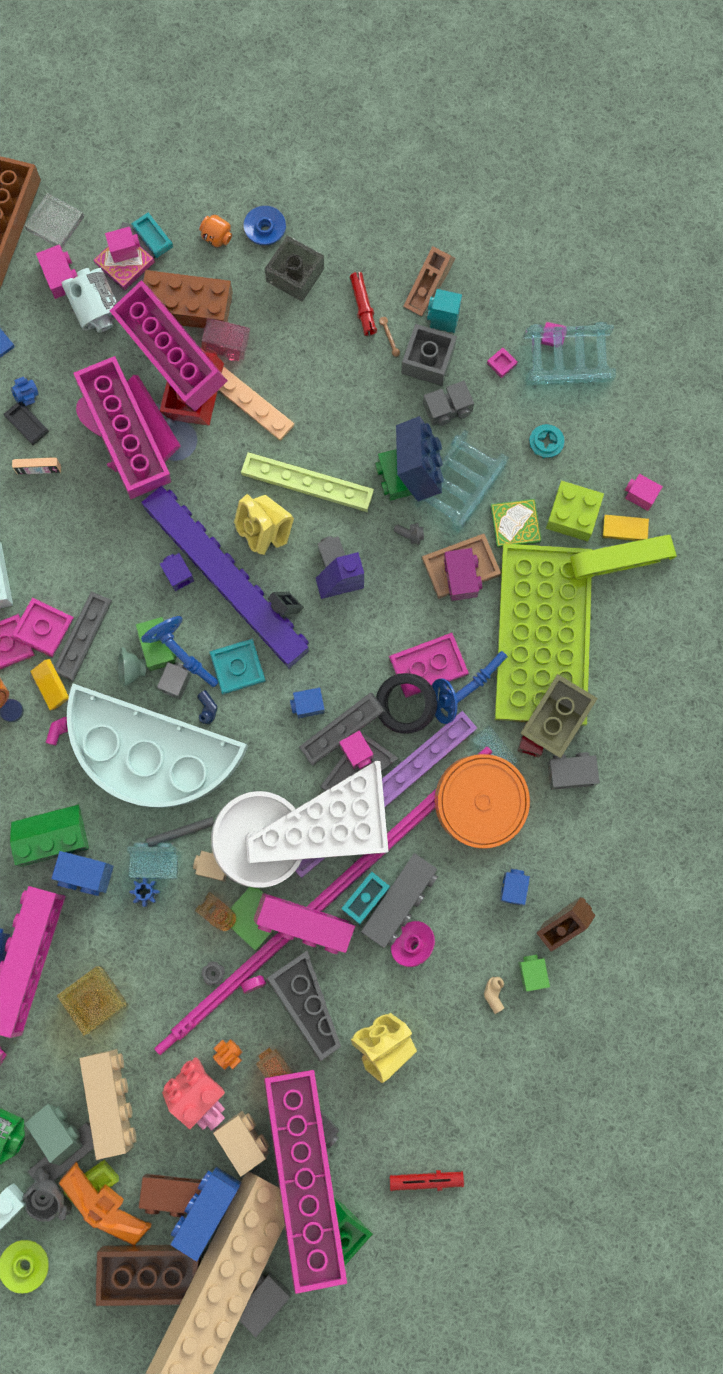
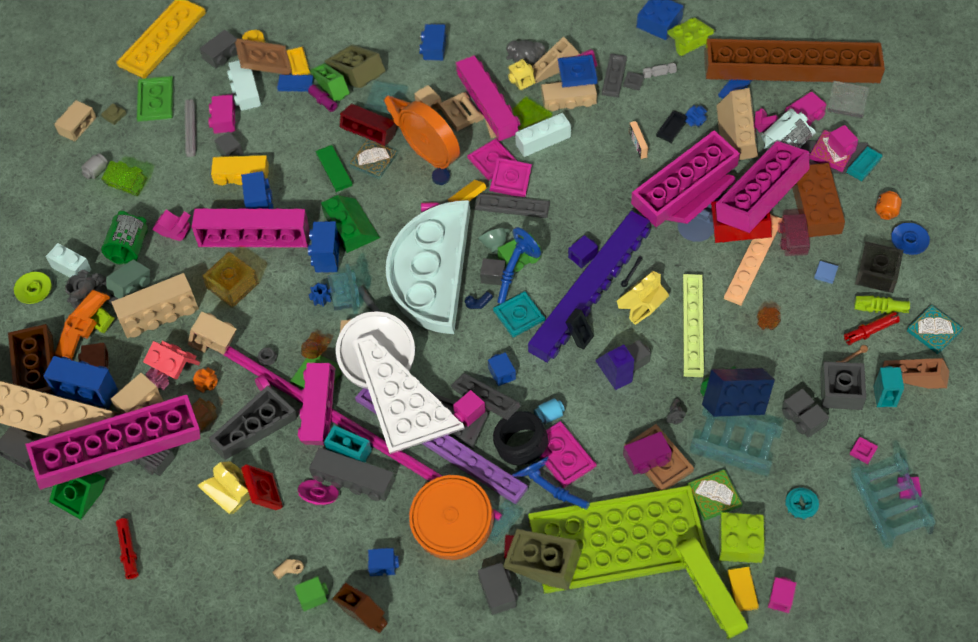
camera: 80 degrees right, 20 degrees down
(52, 348) = (737, 123): none -> tan slope
(59, 322) = (762, 121): none -> dark pink piece
(168, 1040) = (211, 333): none -> tan brick
(229, 539) = (624, 283): none -> black hinge
(279, 324) = (826, 272): none -> medium blue tile
(324, 401) = (768, 318): none -> clear orange gear
(337, 284) = (882, 304): none -> lime hinge
(375, 664) = (549, 410): none -> medium azure brick
(380, 244) = (934, 329): none -> tile
(395, 1007) = (261, 487): none -> red tile

